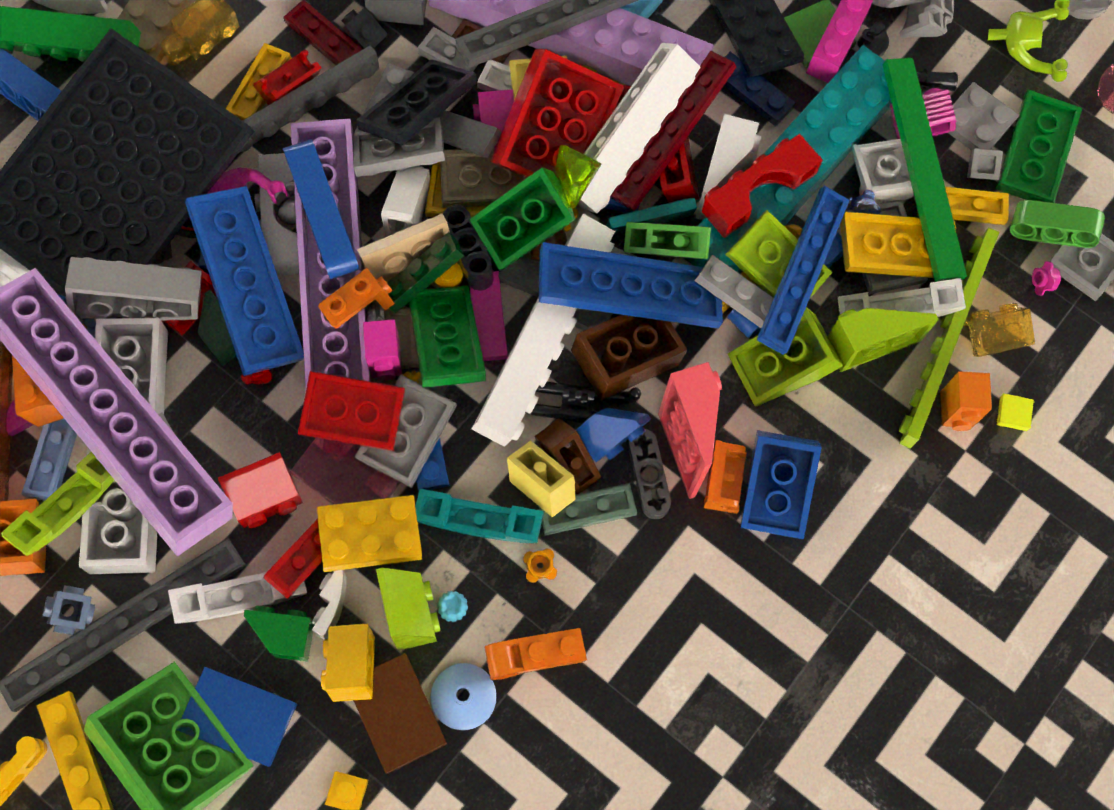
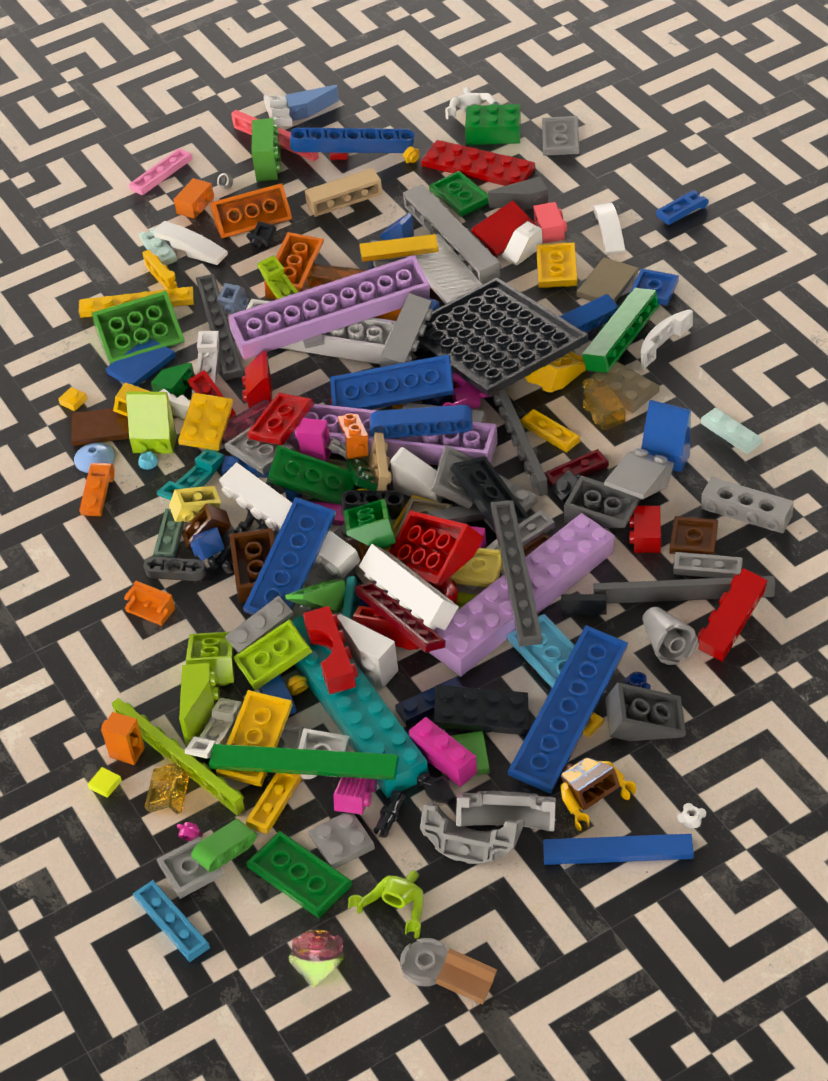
camera: 120 degrees right, 25 degrees down
(287, 77) = (542, 438): red hinge -> none
(544, 557) = (147, 503): light orange plate -> none
(575, 173) = (380, 541): clear neon green slope -> none
(690, 421) = (176, 564): coral slope -> none
(780, 484) = (131, 630): blue slope -> none
(803, 270) = (258, 661): blue tile -> none
(867, 199) = (295, 726): clear blue plate -> none
(985, 164) = (299, 826): light grey tile -> none

